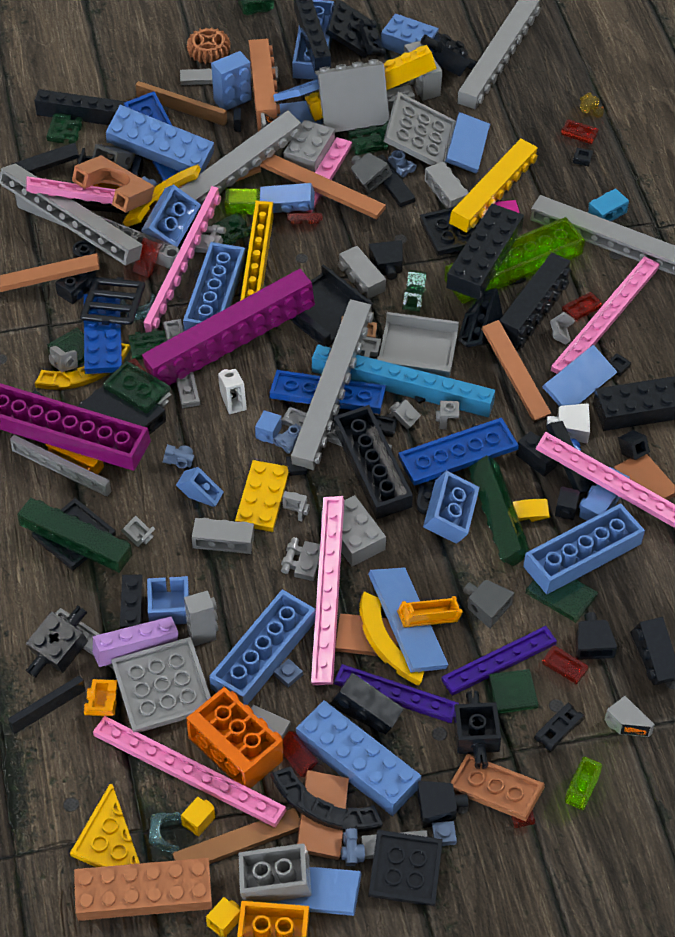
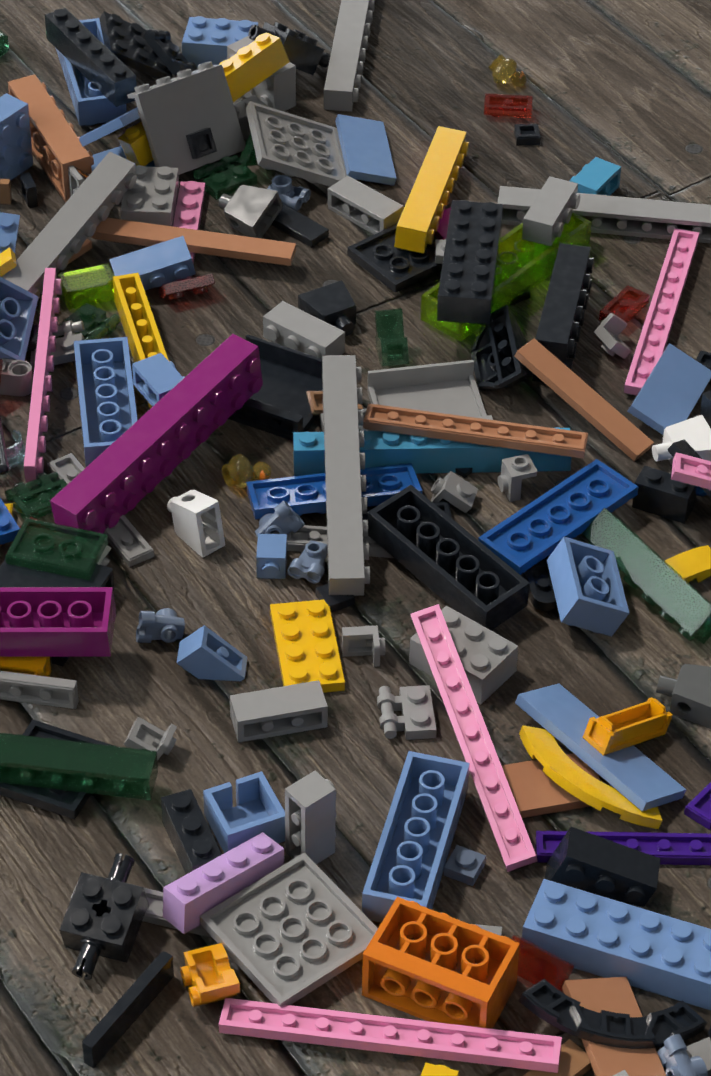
camera: 20 degrees left, 10 degrees down
(245, 283) = (155, 377): none -> medium blue brick
(276, 362) = (241, 471): none -> clear yellow animal
(282, 405) = (281, 521): none -> sand blue plate
(357, 114) = (201, 143): none -> black tile
(431, 376) = (475, 430): none -> nougat tile
(557, 226) = (550, 211): none -> light grey brick

